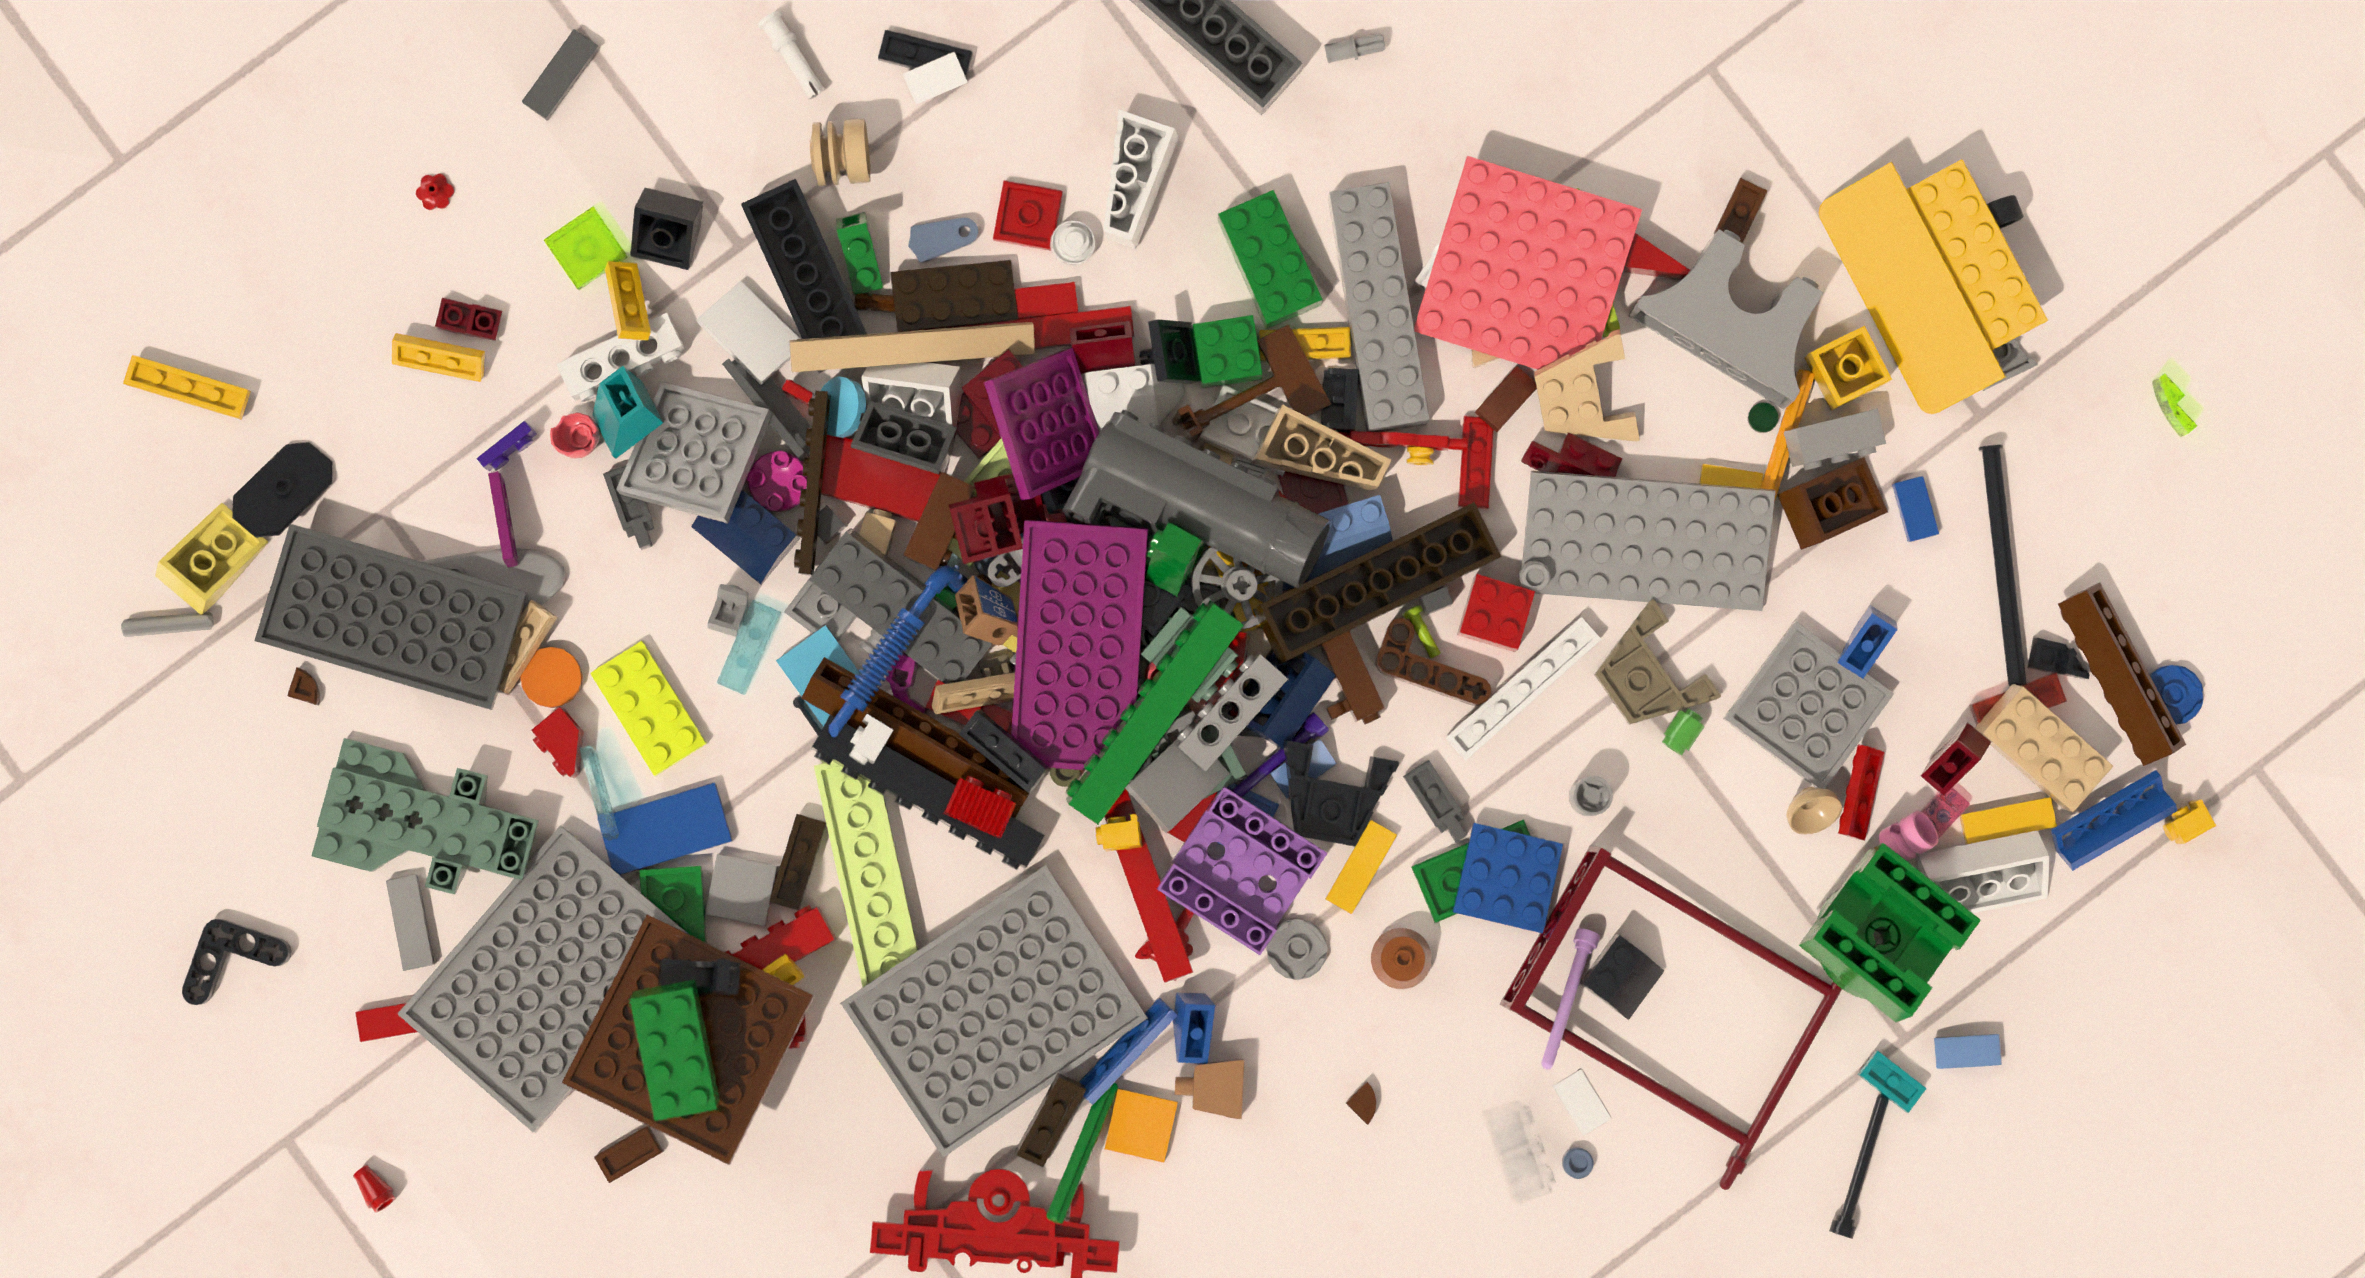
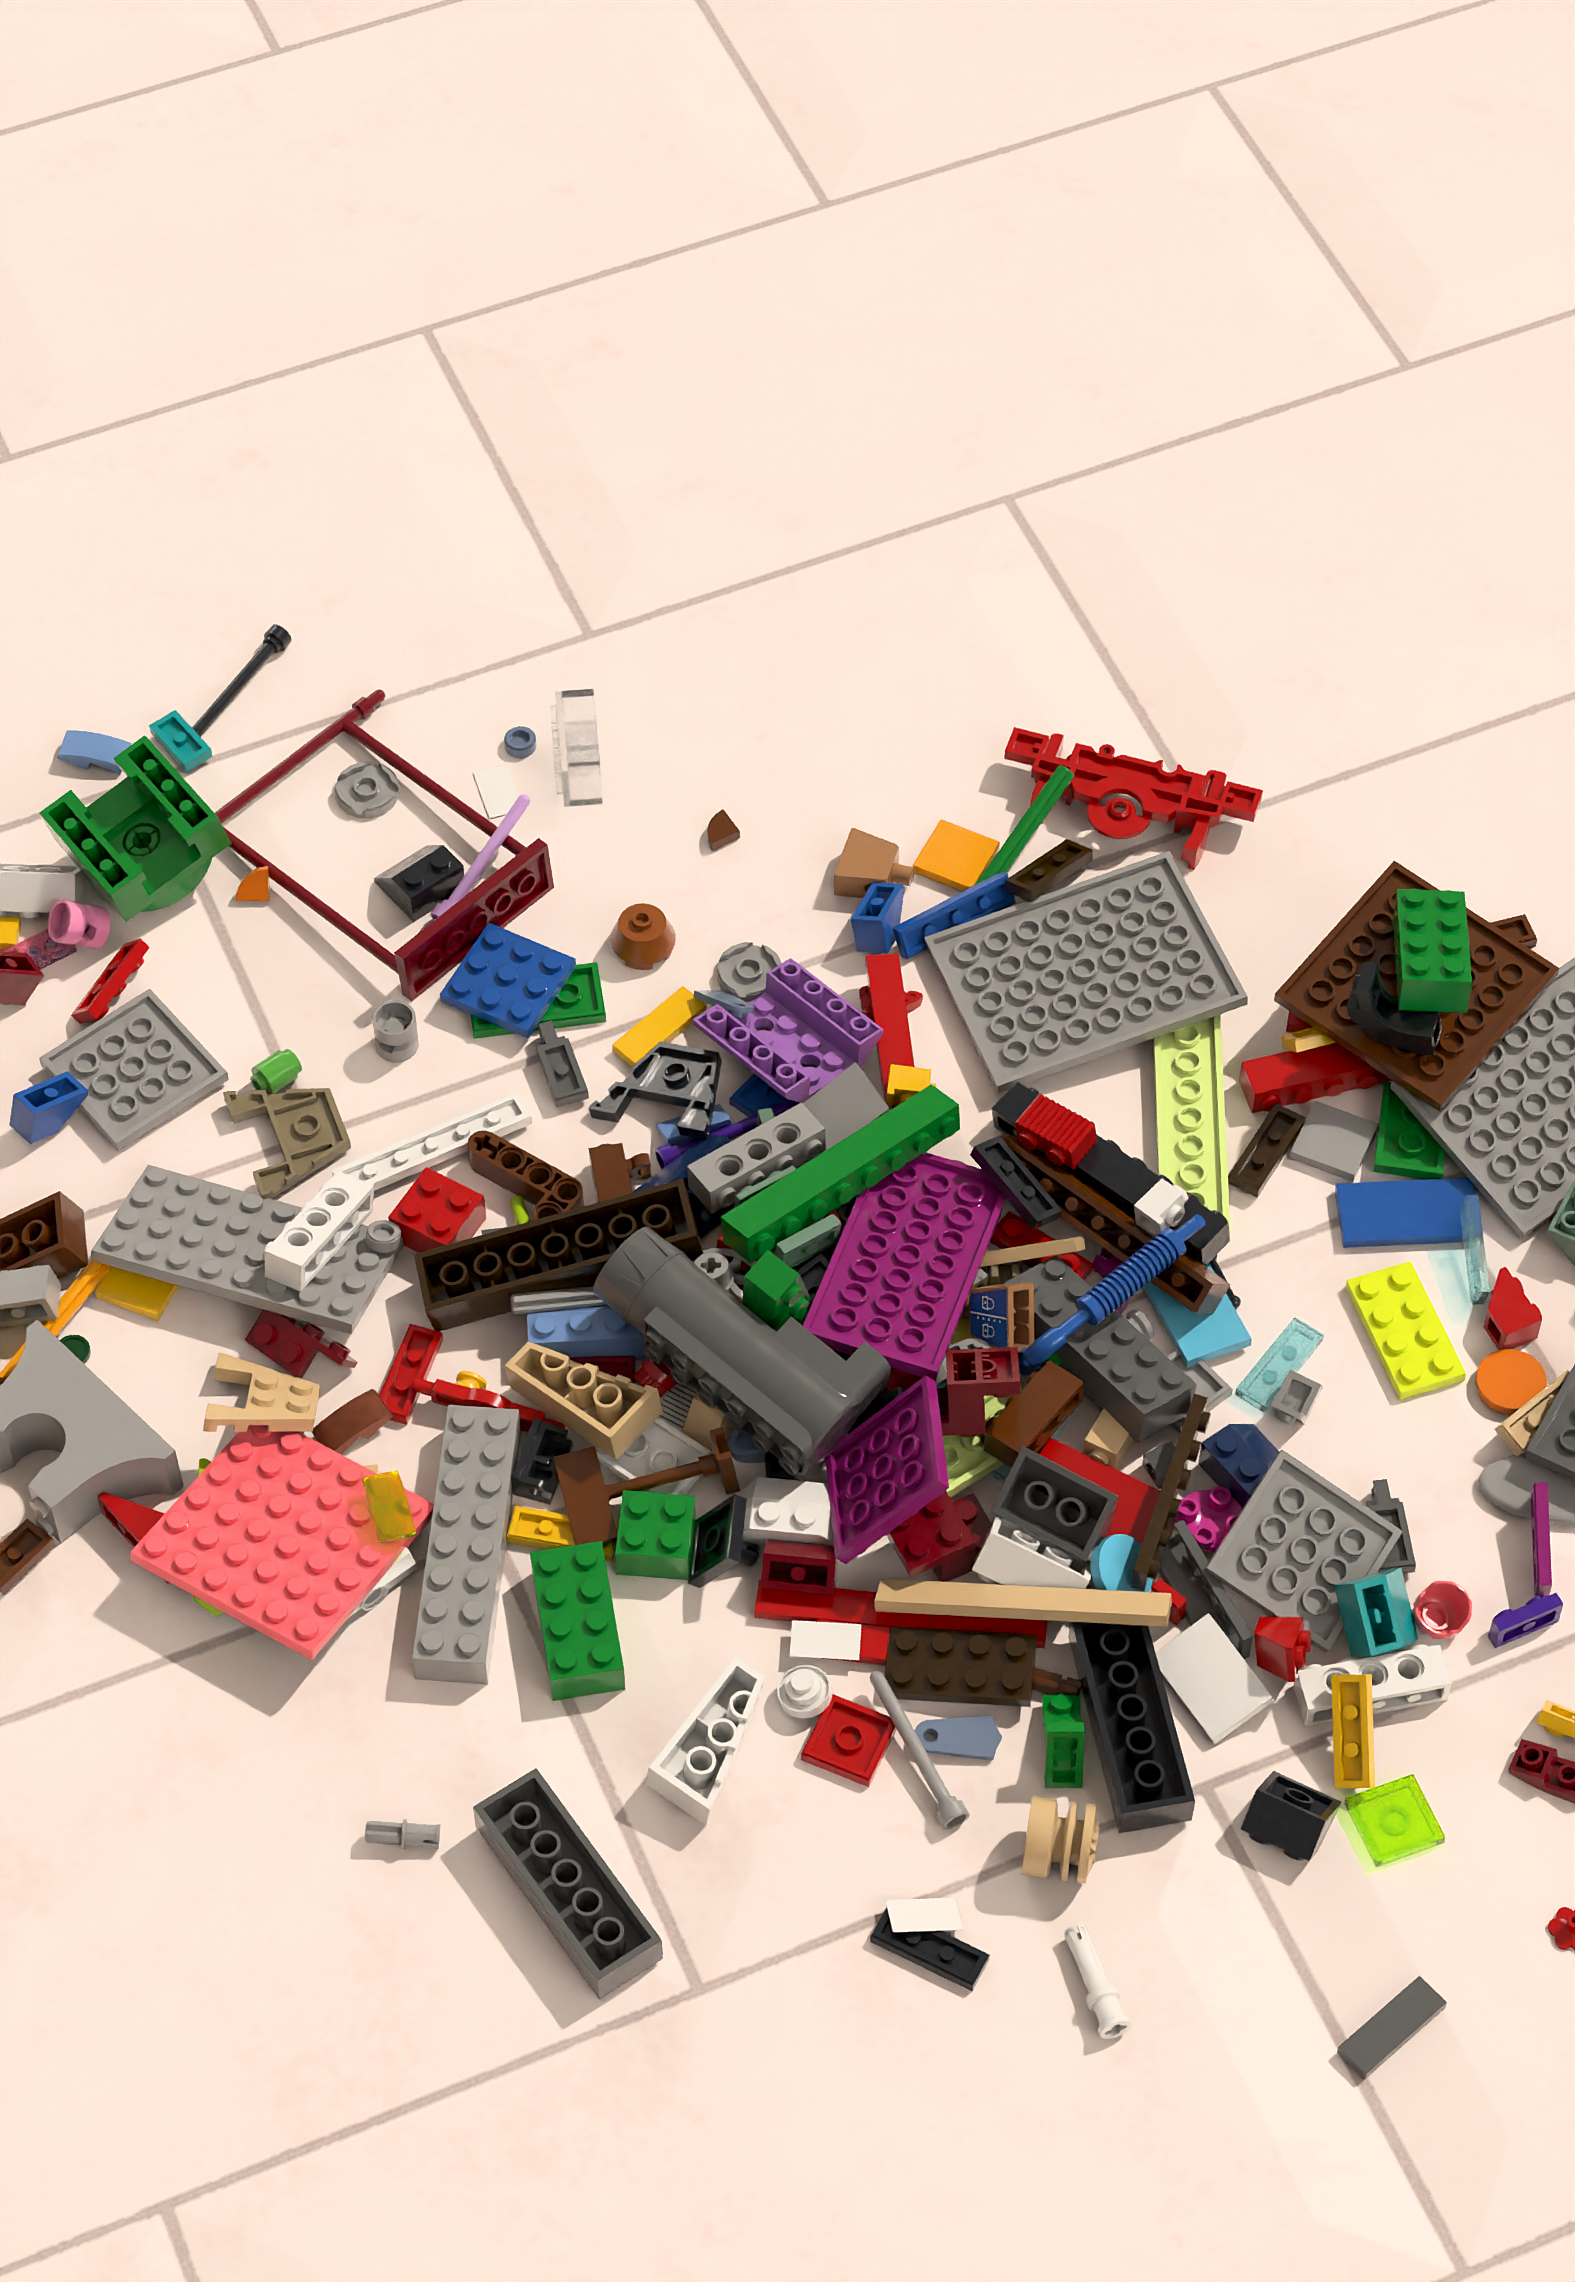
camera: 160 degrees left, 30 degrees down
(699, 363) = (1282, 1646): none -> red slope
(933, 169) = (950, 1810): none -> light grey piece
(1067, 293) = (825, 1640): none -> white sticker
(1307, 897) = (735, 1006): none -> sand blue piece
(1364, 545) = (554, 1300): none -> light grey axle
(1447, 305) = (389, 1506): none -> clear neon green slope
(1592, 510) = (318, 1231): none -> white brick
(1702, 1071) = (367, 790): none -> light grey tile
(1767, 929) = (255, 886): none -> orange tile
(1815, 815) = (167, 976): tan piece -> none

